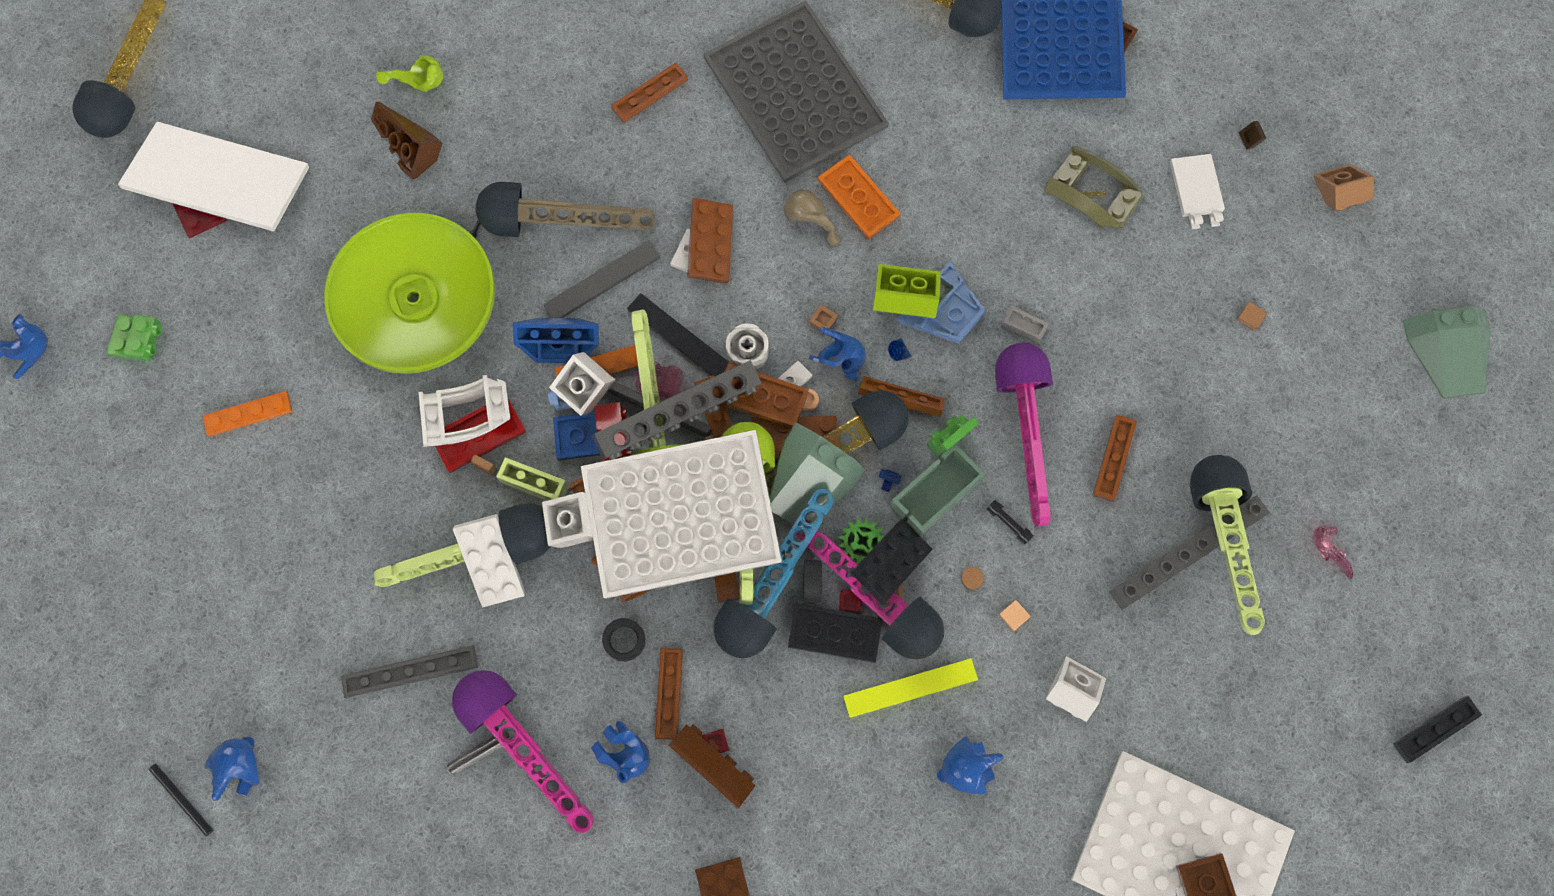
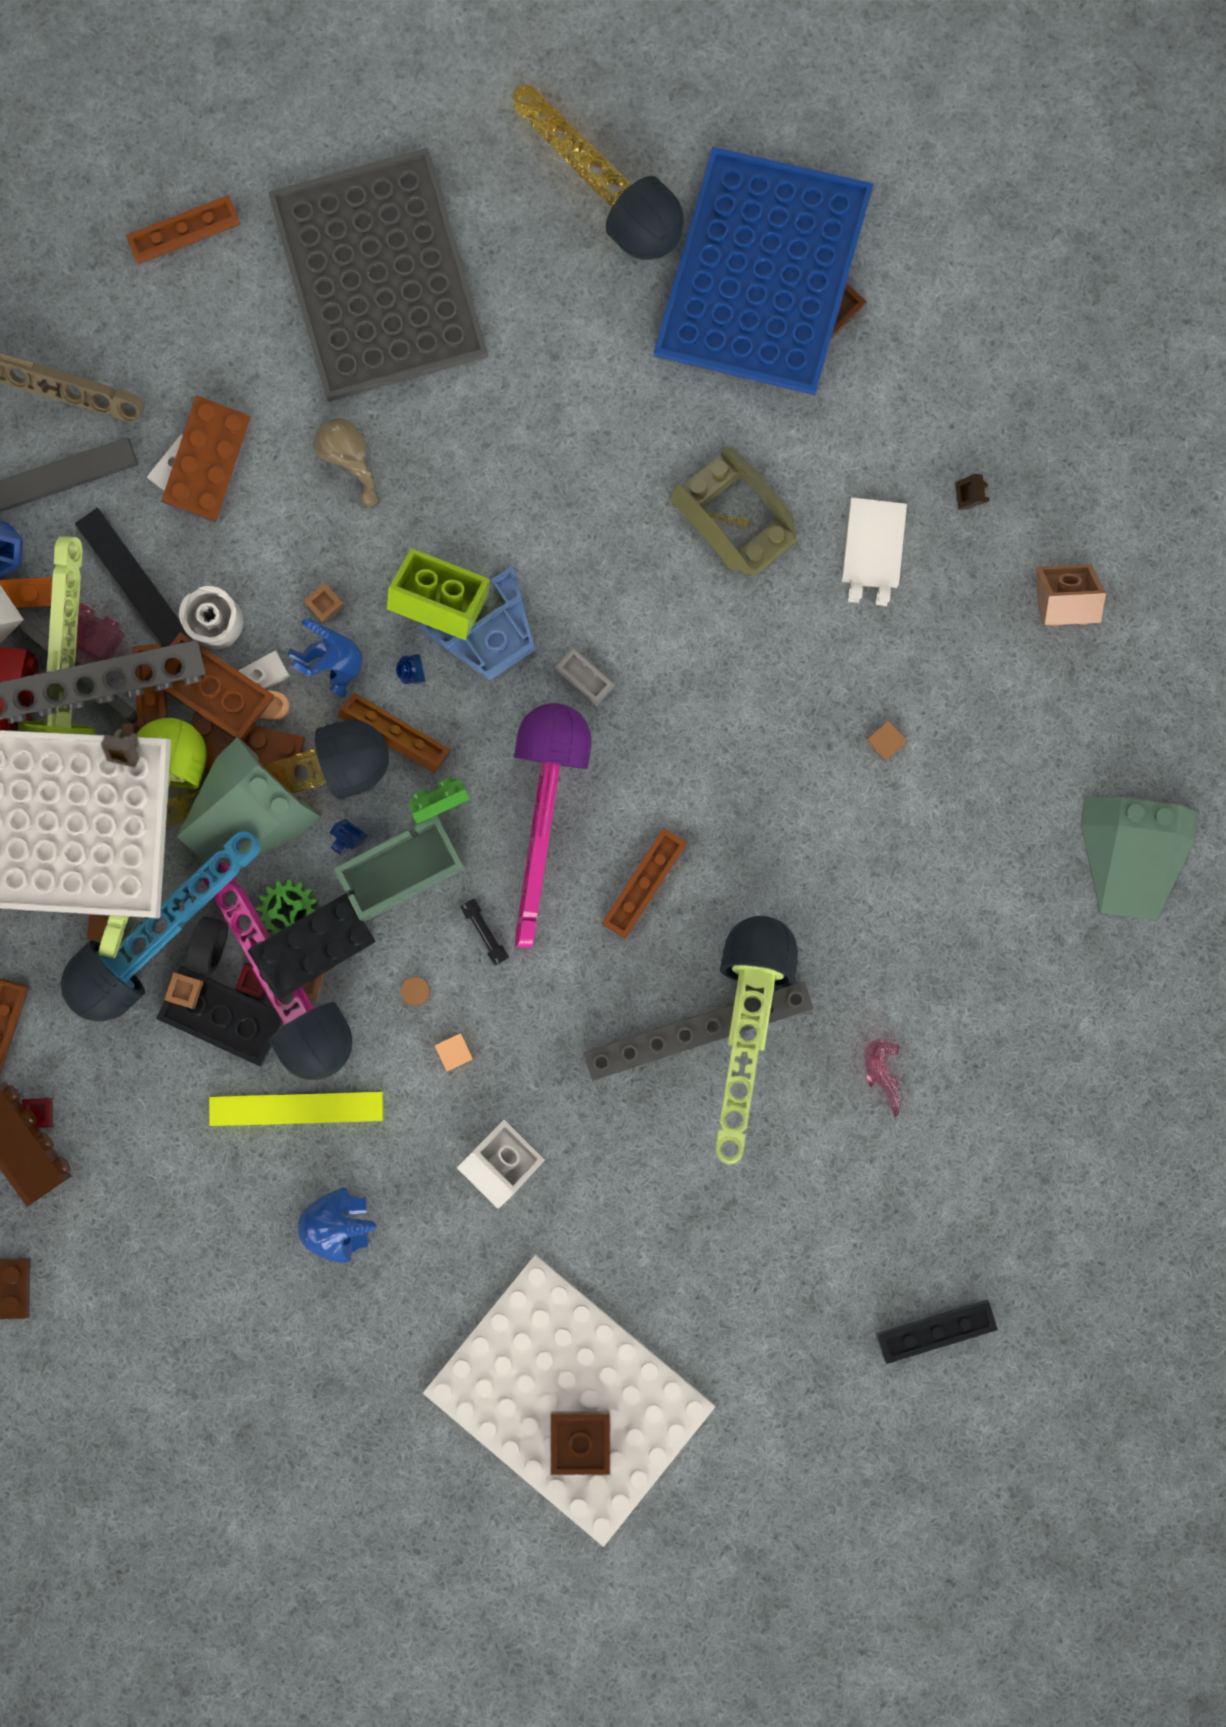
camera: 15 degrees right, 10 degrees up
(726, 444) = (121, 750): none -> dark brown tile
(805, 618) = (183, 990): none -> medium nougat plate
(858, 197) = (419, 446): orange plate -> none

